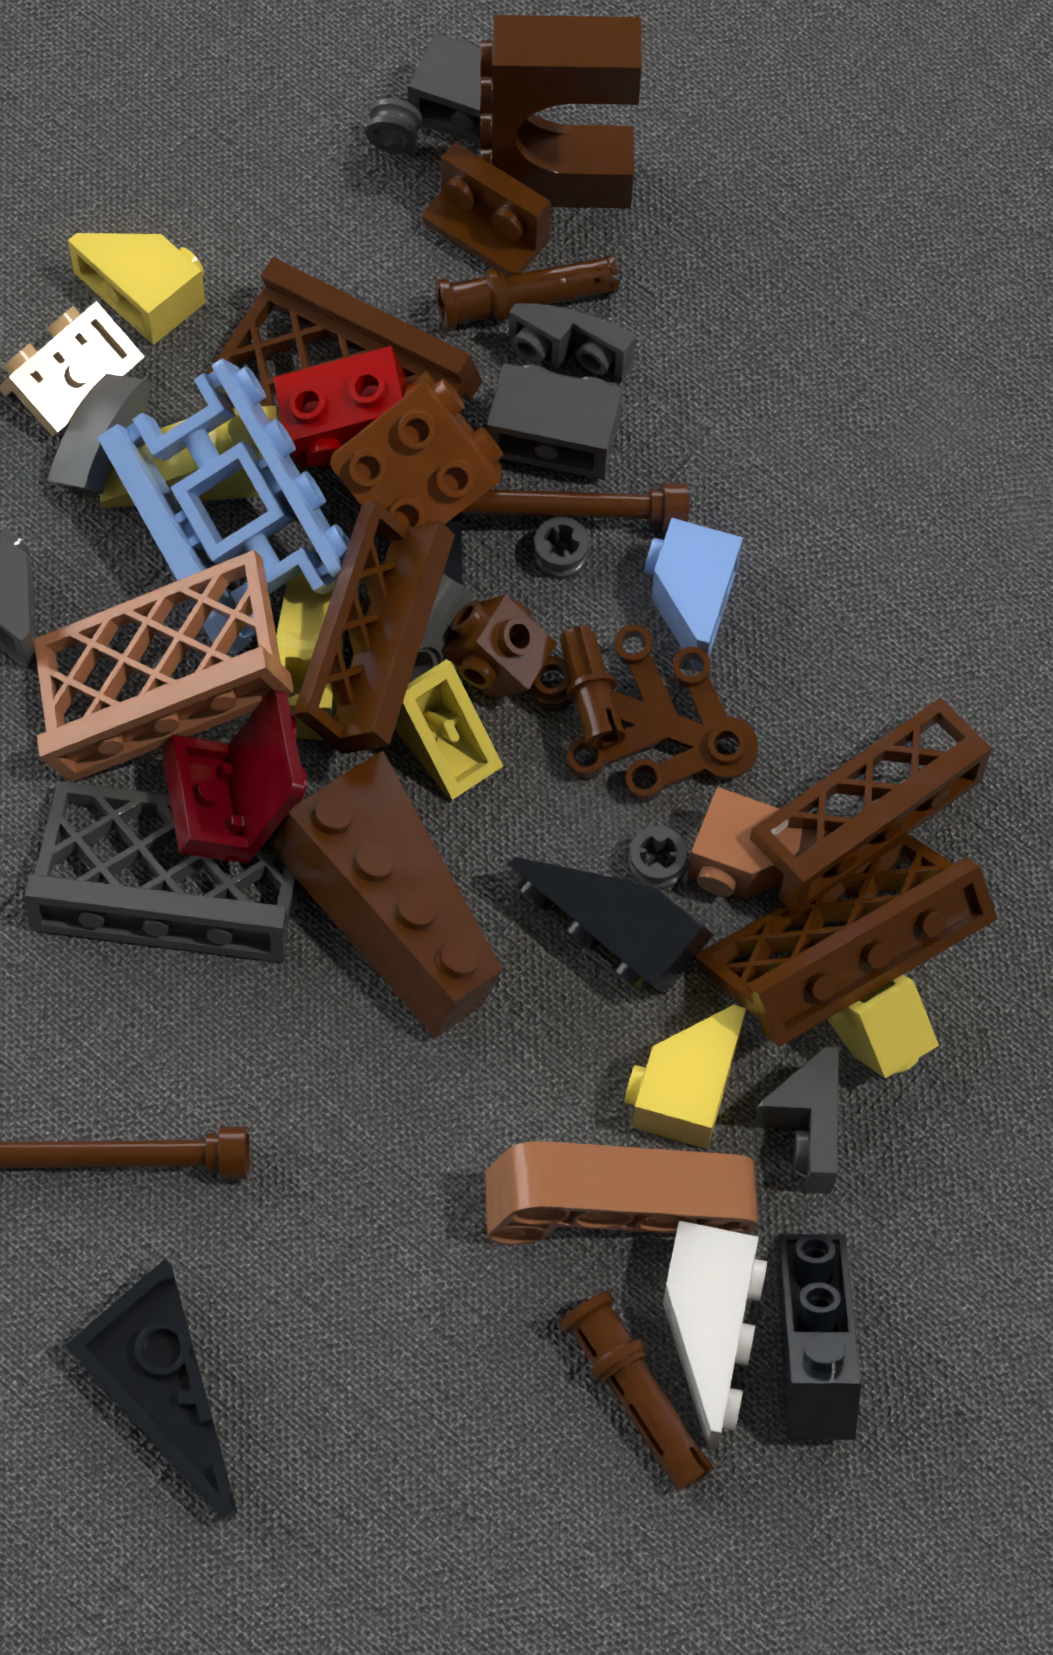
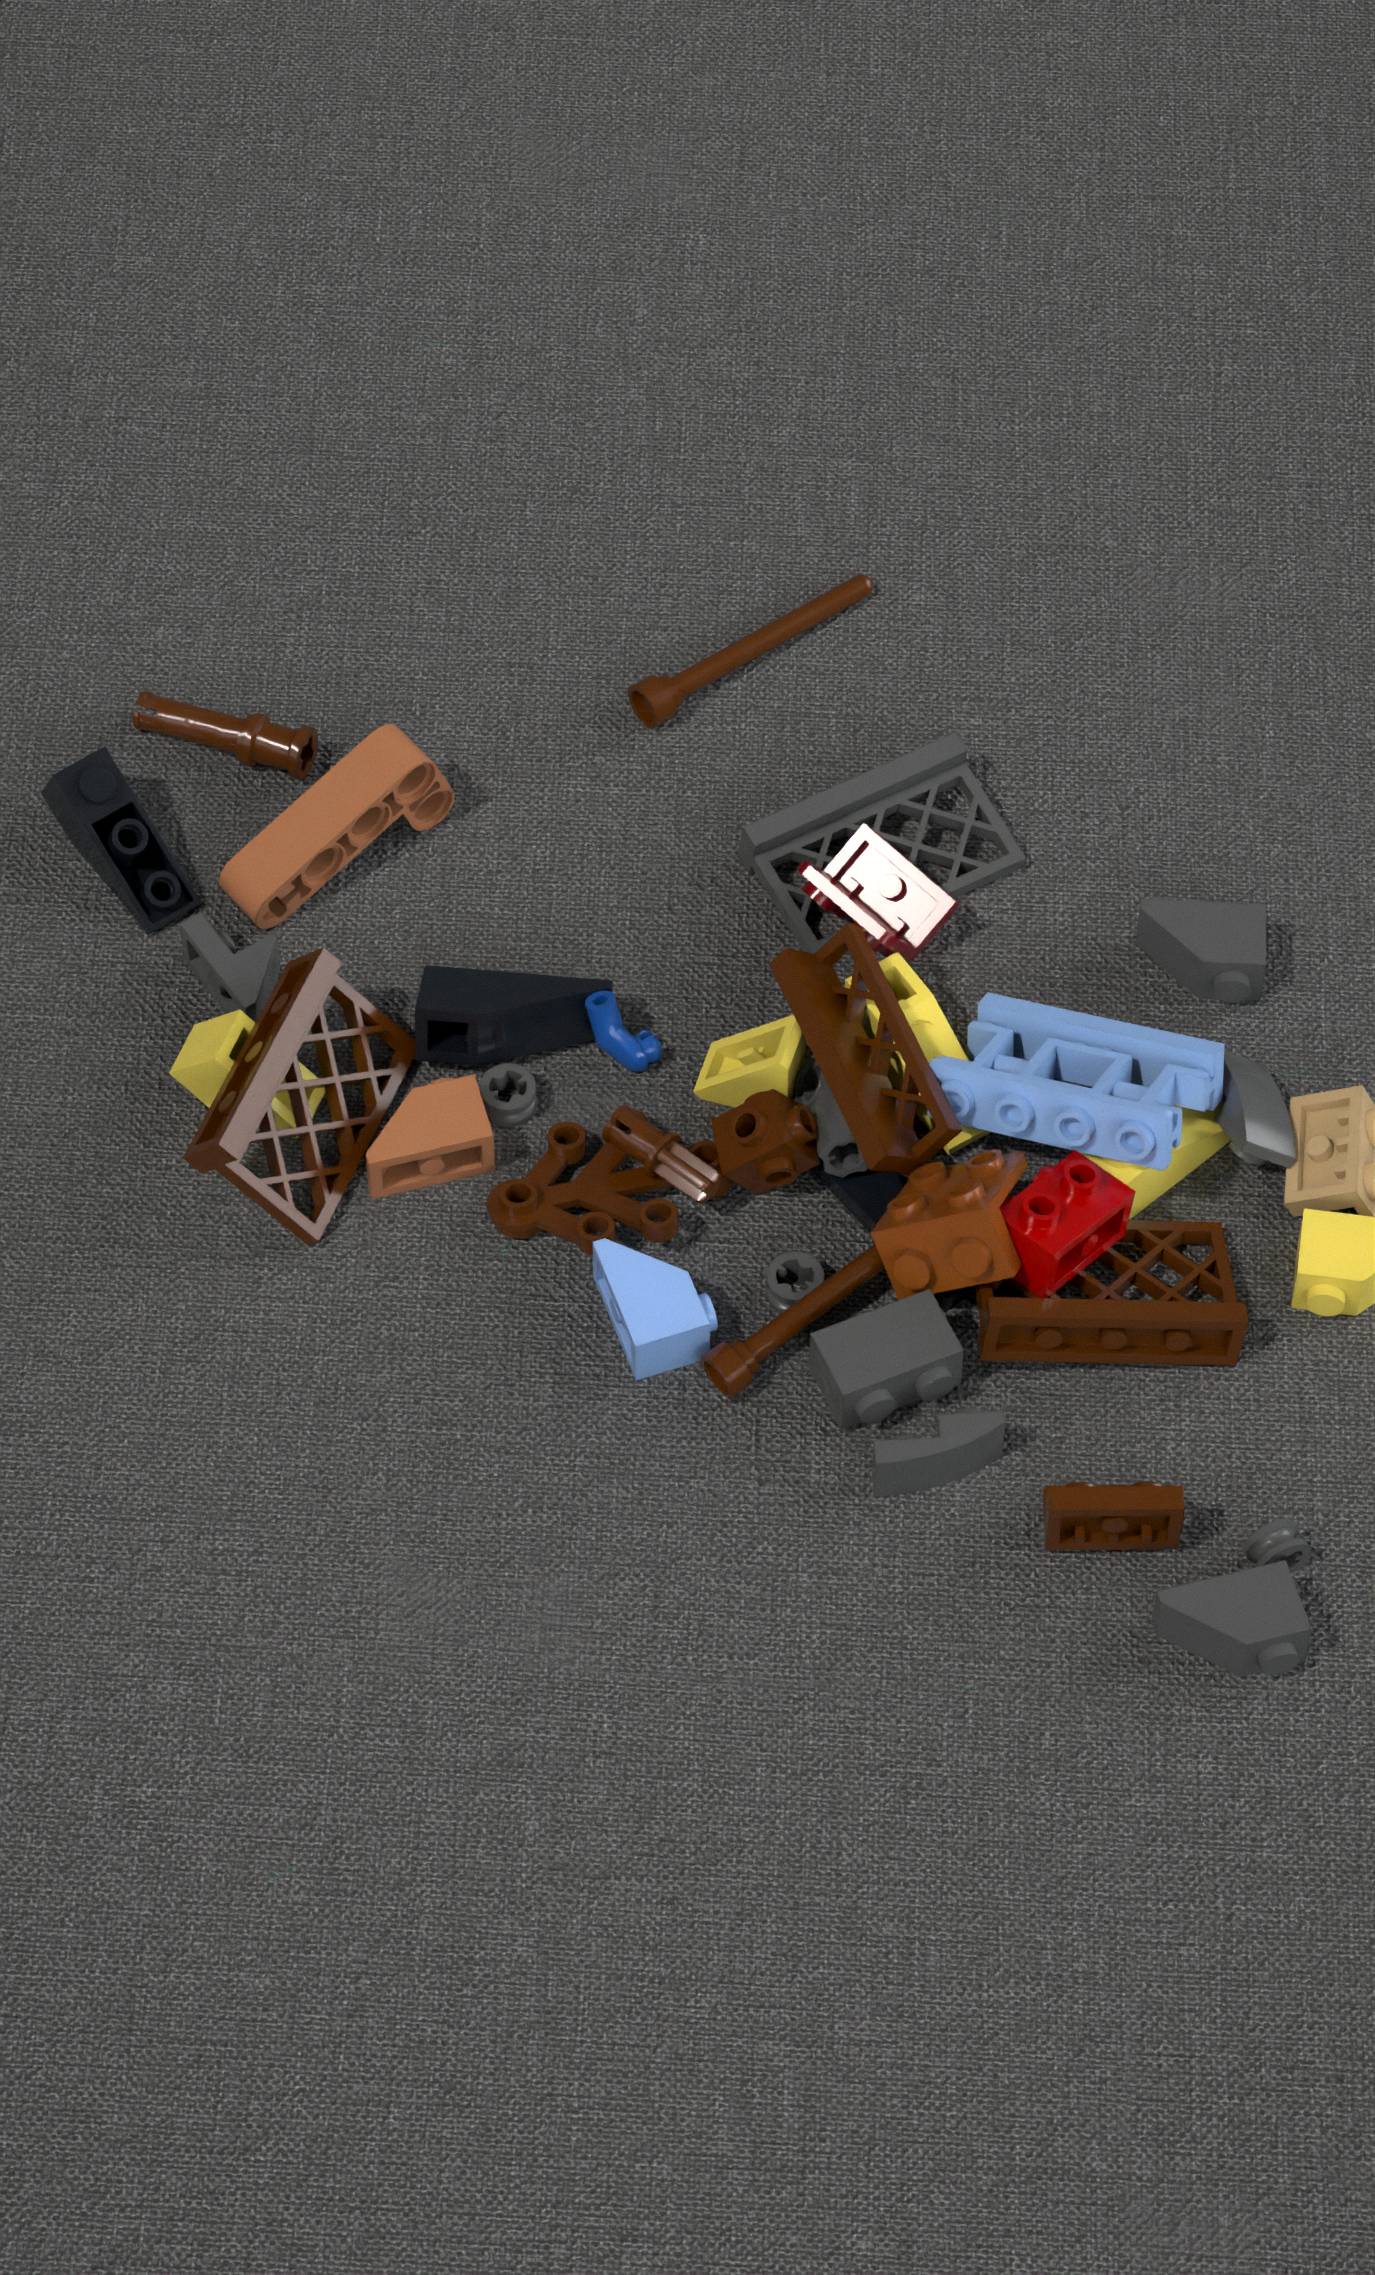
camera: 145 degrees right, 10 degrees down
(150, 1370) = (584, 544): black wing -> none
(165, 706) = (982, 906): nougat fence -> none
(390, 892) = (686, 911): reddish brown wedge -> none
(497, 294) = (1039, 1457): reddish brown pin -> none
(529, 828) = (612, 1037): none -> blue arm
(553, 63) = (1105, 1549): reddish brown arch -> none
(686, 1079) = (354, 928): light yellow slope -> none
(705, 1308) = (208, 795): white slope -> none
(879, 824) = (340, 1209): reddish brown fence -> none

